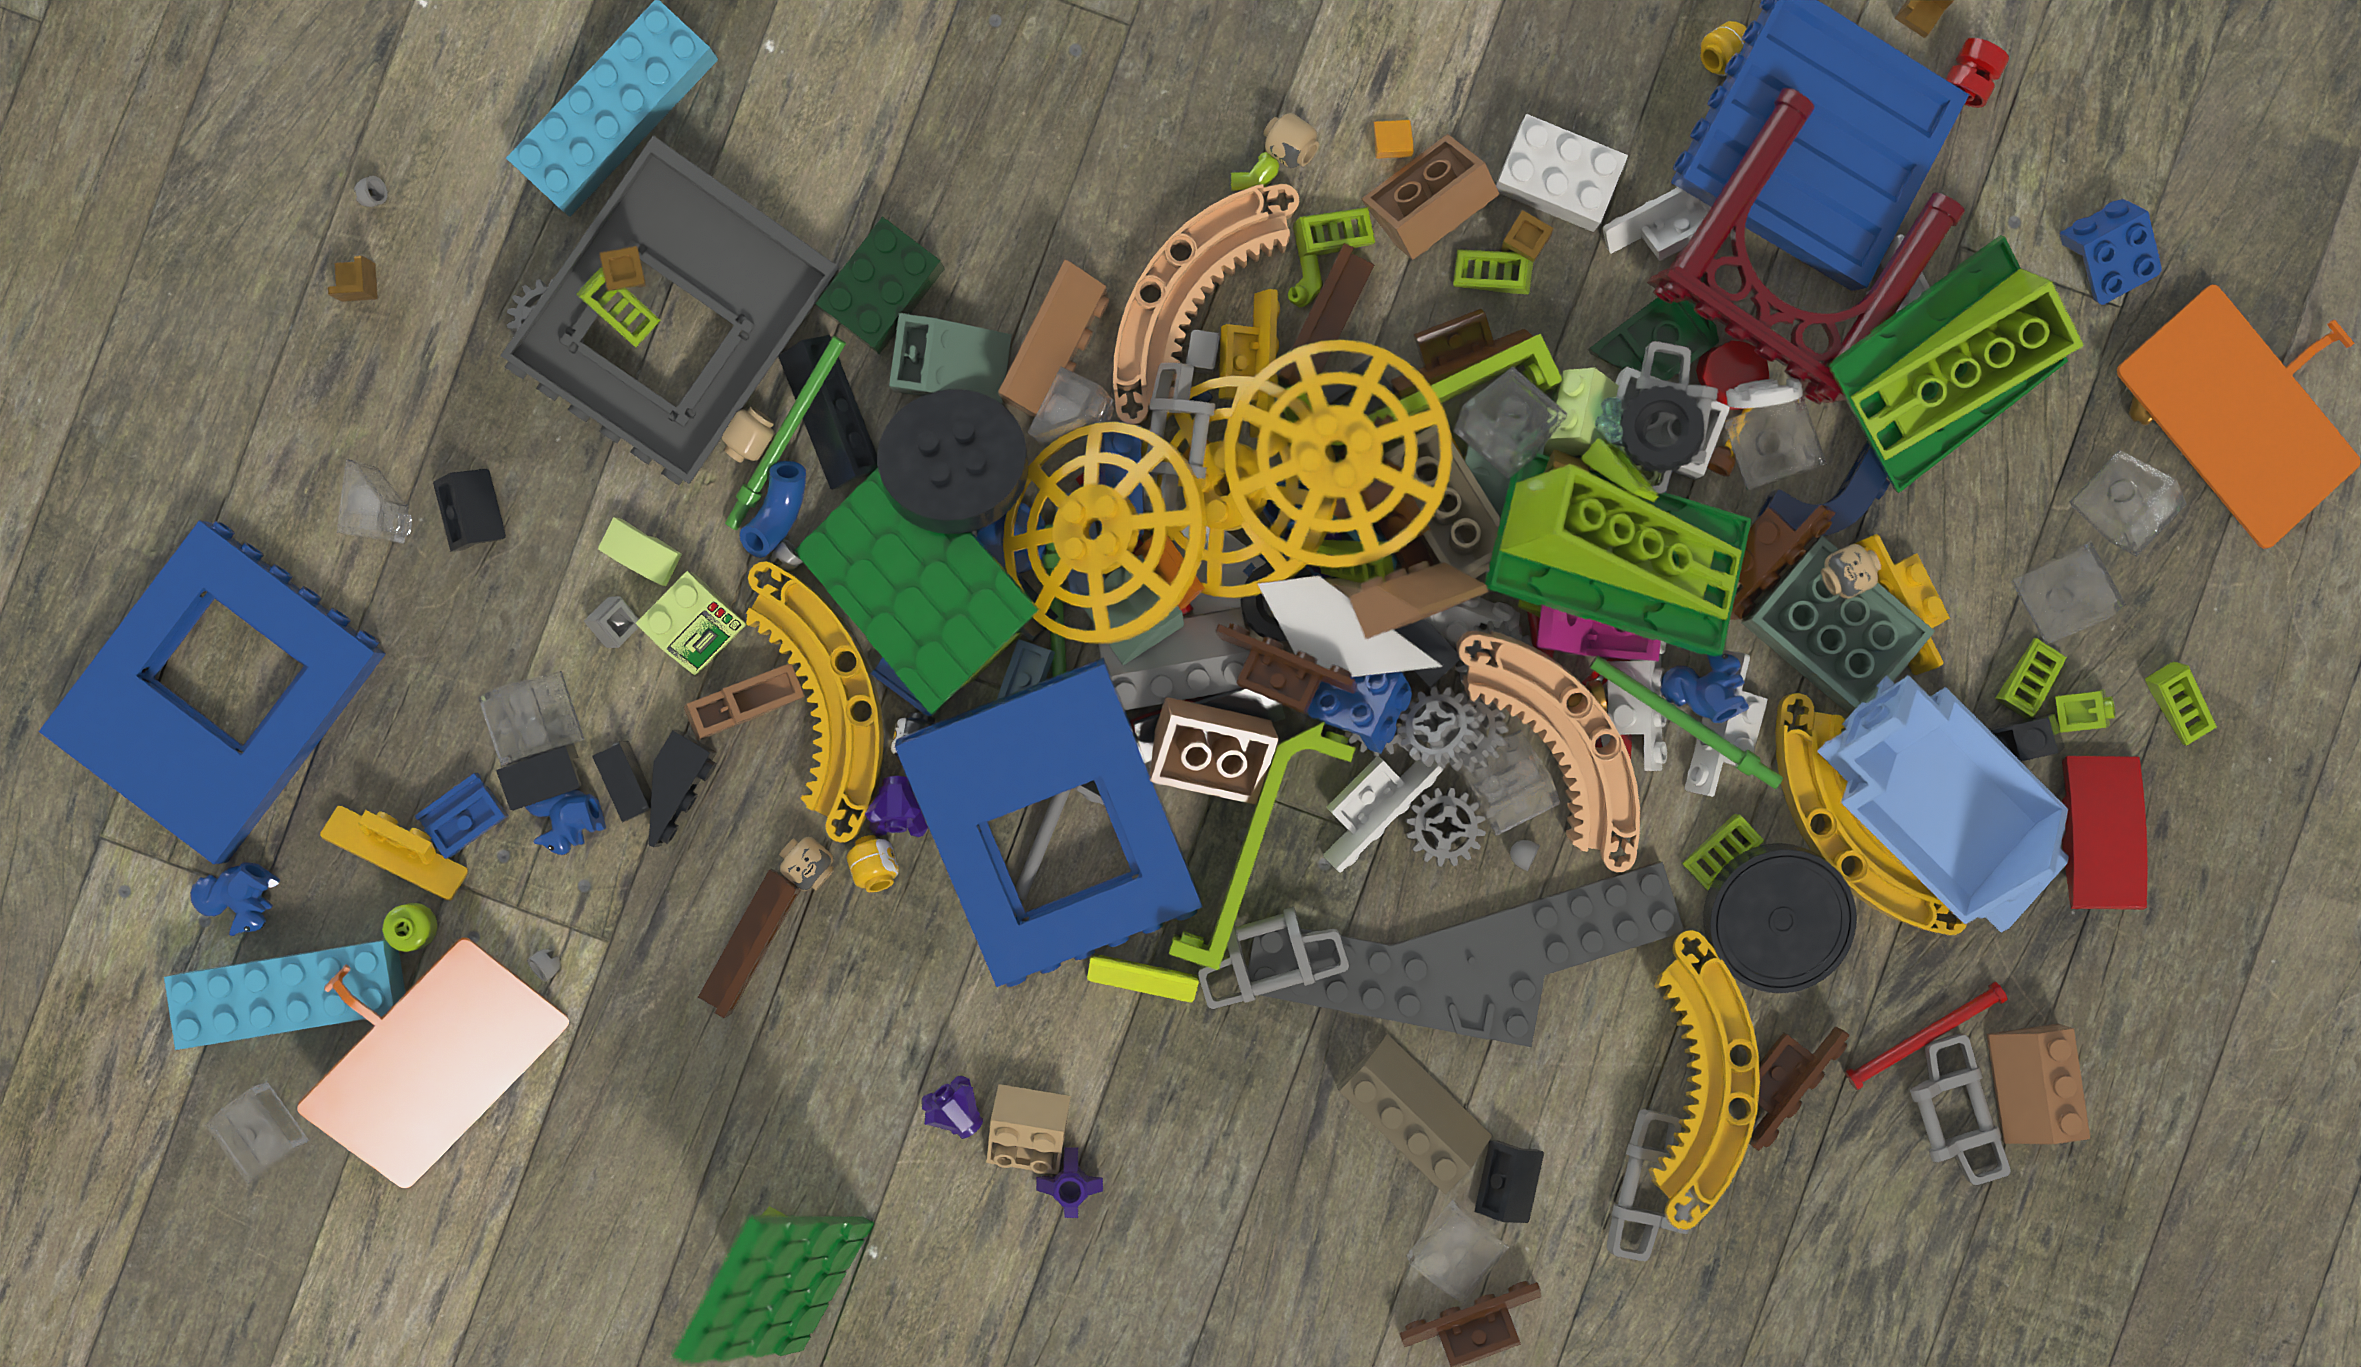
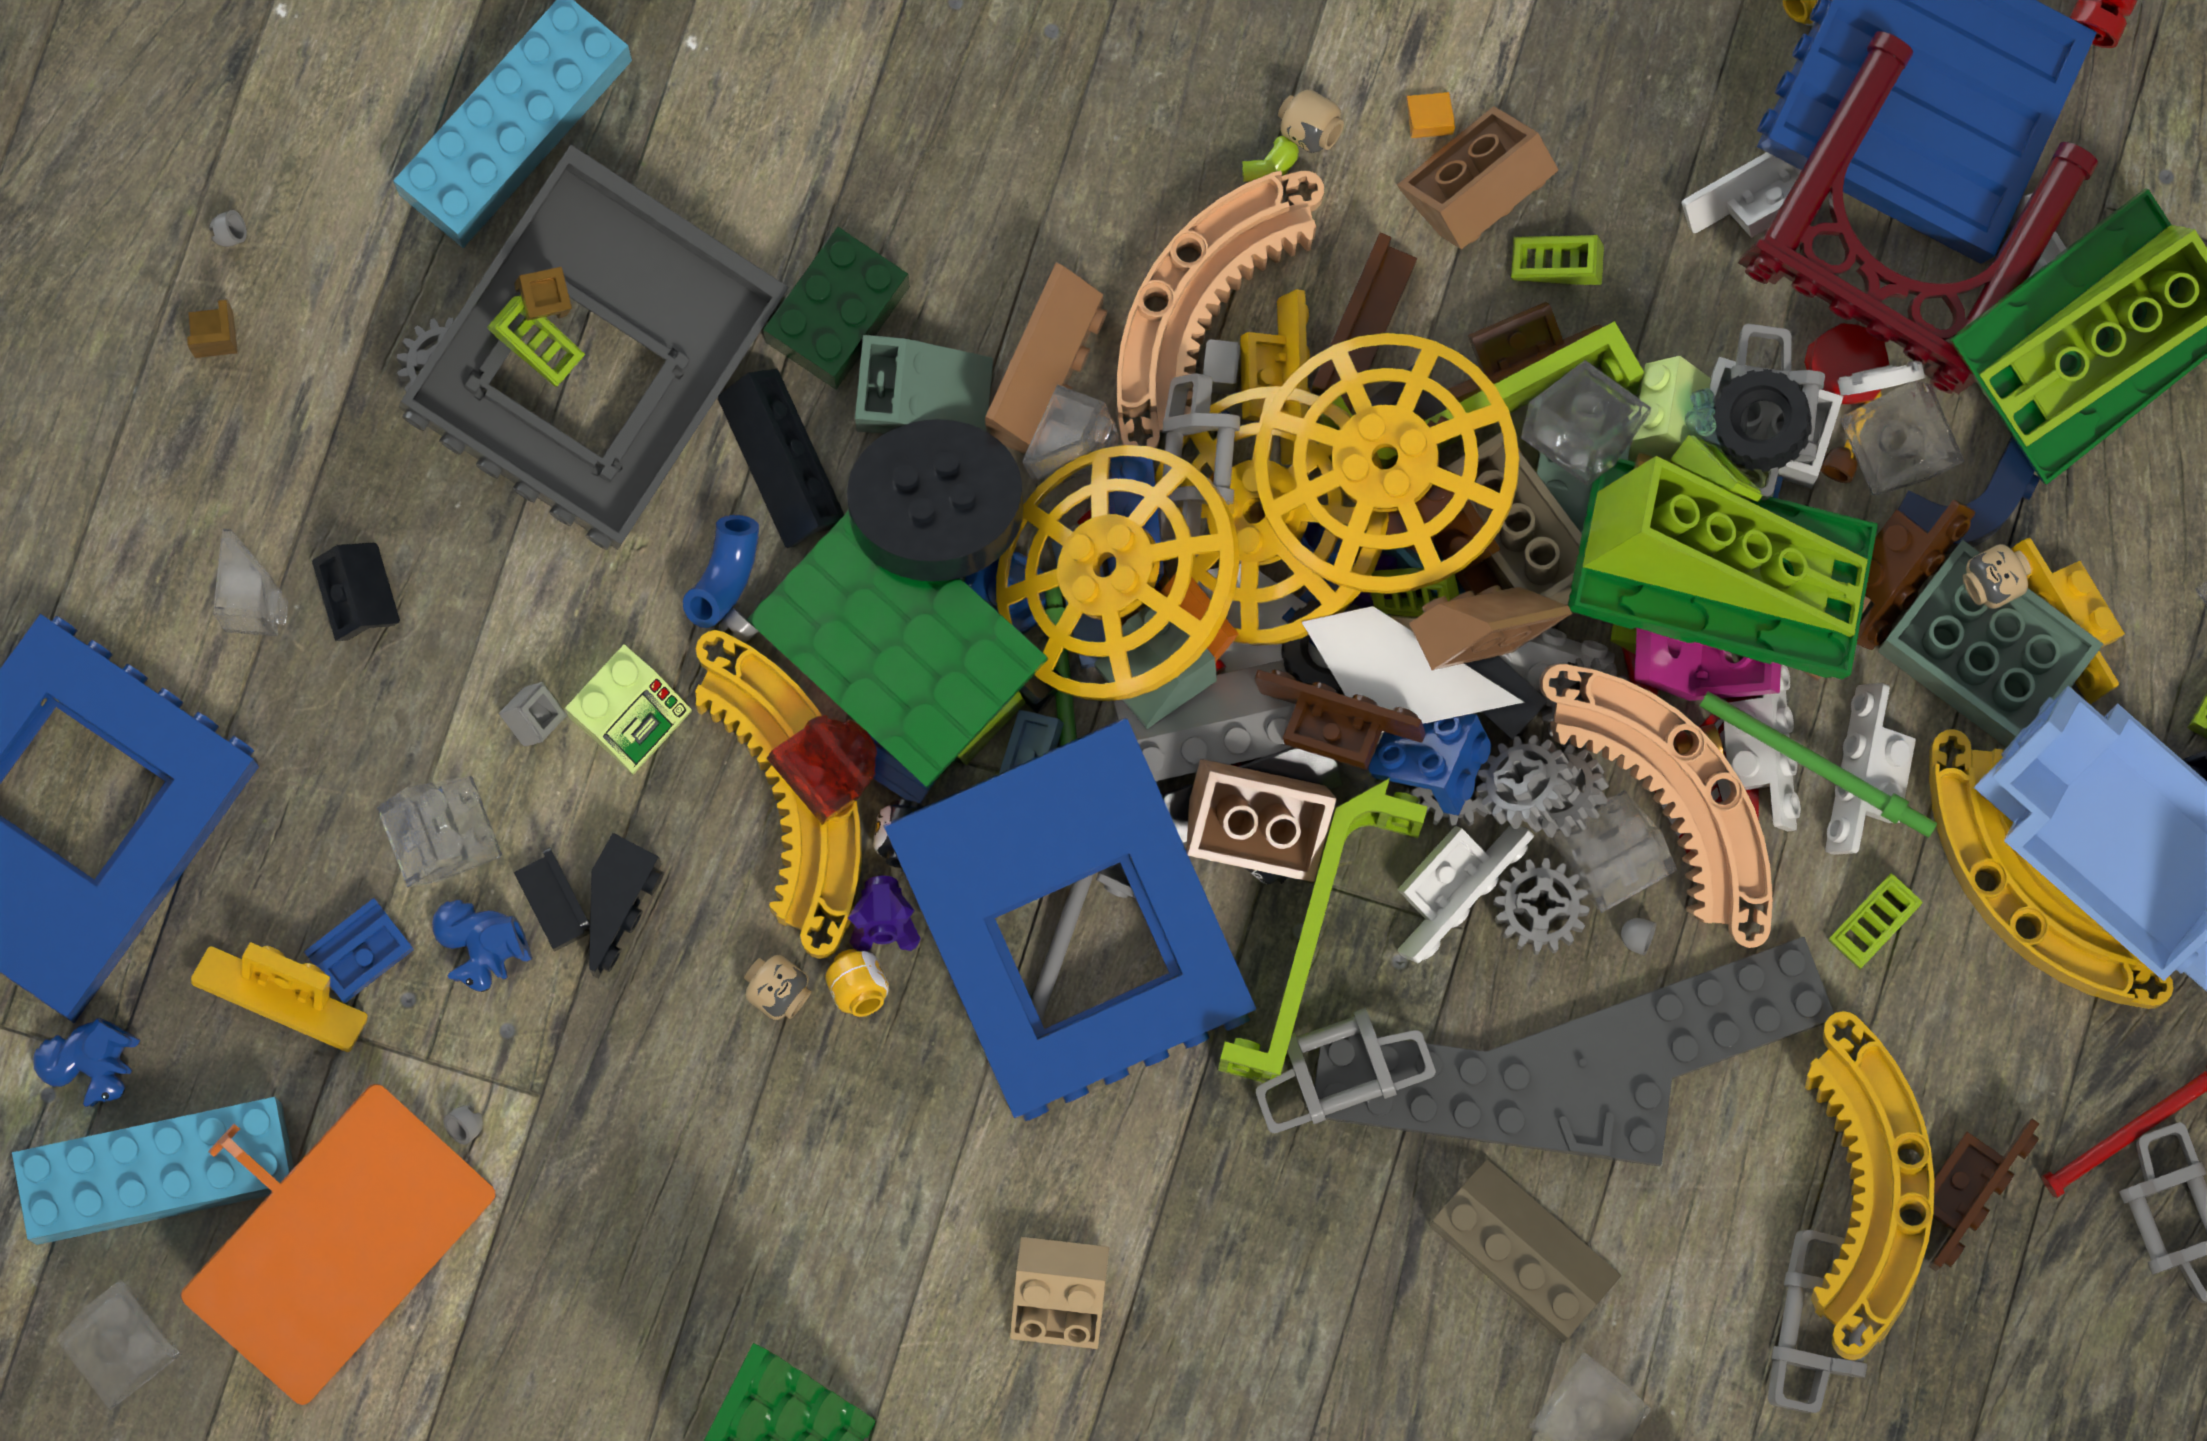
camera: 10 degrees left, 10 degrees down
(410, 927) = (313, 1094): lime head -> none
(539, 777) = (454, 897): black panel -> none
(639, 551) = (562, 629): yellowish green slope -> none
(743, 701) = (692, 799): medium nougat slope -> none
(748, 435) = (687, 487): tan head -> none
(749, 943) = (712, 1085): reddish brown fence -> none
(750, 493) = (690, 556): bright green bar -> none
(851, 684) = (827, 764): none -> clear red slope
(953, 1108) = (969, 1269): dark purple rock -> none
(1070, 1185) = (1113, 1356): dark purple rock -> none
(1142, 978) = (1188, 1105): neon yellow slope -> none
(1309, 285) = (1342, 285): lime arm -> none
(1321, 247) = (1339, 244): lime slope -> none
(1509, 1182) = (1645, 1328): black panel -> none
(1527, 236) = (1594, 216): pearl gold panel -> none
(1560, 173) = (1628, 143): white brick -> none
(1662, 323) = (1760, 305): dark green wing -> none
(1709, 695) = (1844, 731): blue animal -> none
(1780, 918) = (1948, 992): black brick -> none

